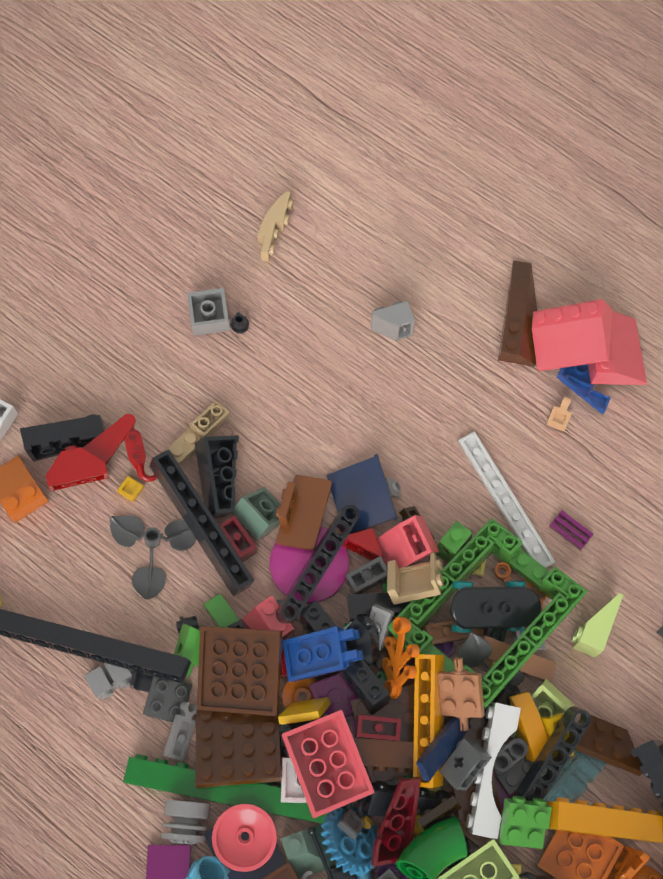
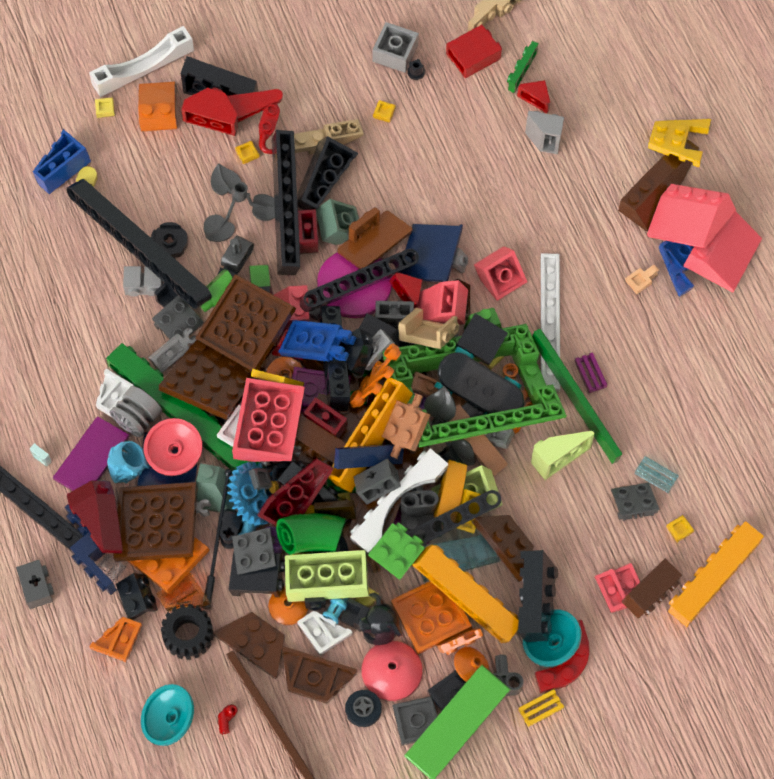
camera: 30 degrees right, 5 degrees down
(112, 609) = (173, 230): none -> black plate
(149, 811) = (111, 391): none -> white wing
(183, 598) = (237, 253): none -> dark grey beam
(233, 378) = (384, 111): none -> yellow tile
(280, 277) = (474, 51): none -> red brick
(332, 269) = (522, 66): none -> green plate
(362, 289) = (535, 94): none -> red slope
(435, 479) = (501, 272): none -> coral slope
(468, 560) = (482, 339): none -> black tile
(504, 269) = (671, 137): none -> yellow wing
(577, 562) = (576, 396): none -> green tile

